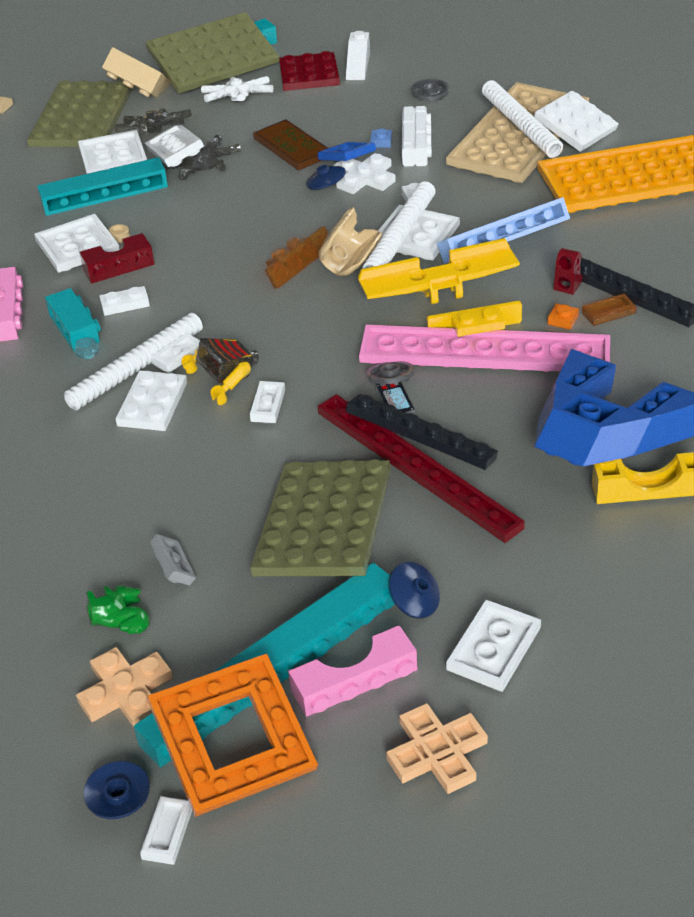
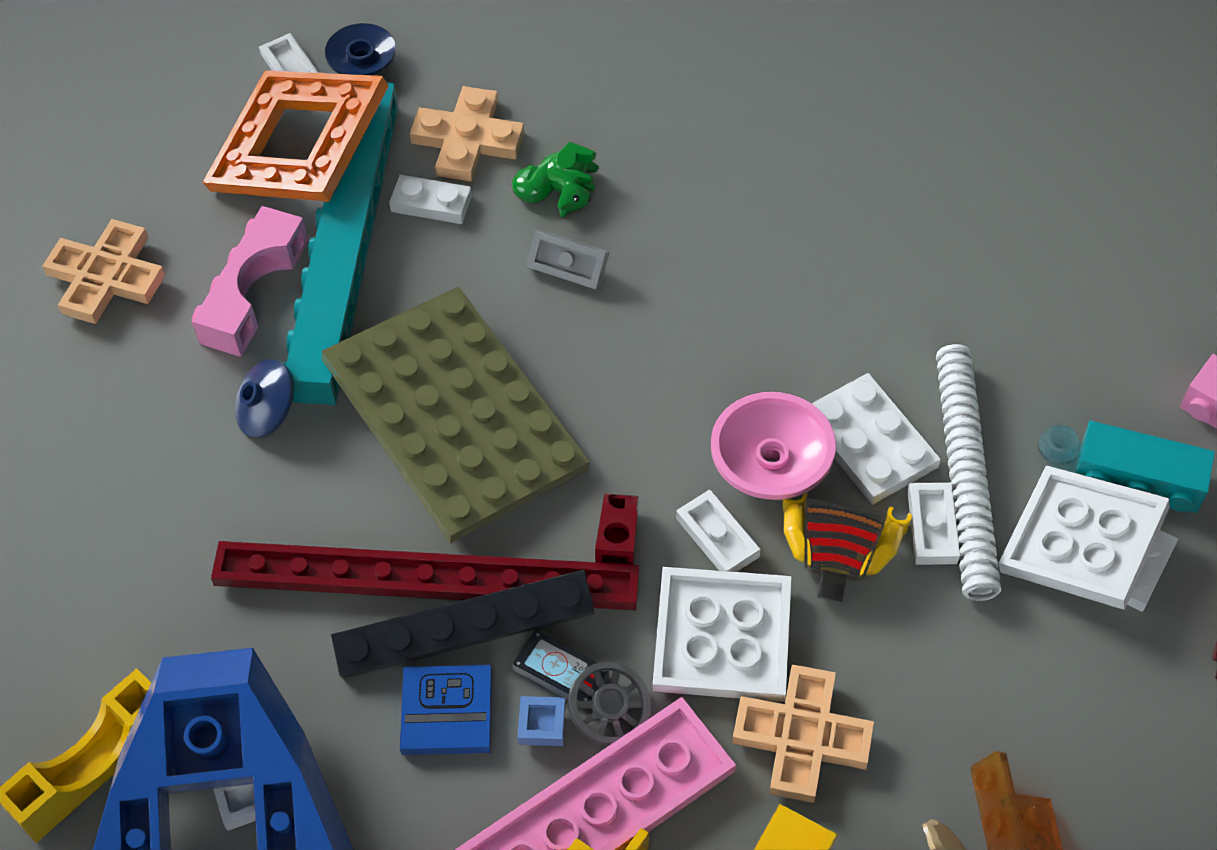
camera: 135 degrees right, 15 degrees up
(132, 308) = (1084, 536): none -> white plate
(193, 654) = (430, 199): none -> white plate
(202, 405) = (775, 428): none -> bright pink dish
(309, 425) = (617, 529): none -> dark red leg
(313, 369) = (722, 634): none -> white plate
(326, 324) = (803, 733): none -> light nougat plate
(425, 384) = (541, 721): none -> medium blue plate
(462, 414) = (446, 710): none -> blue tile
(493, 645) = (129, 408): white plate -> none

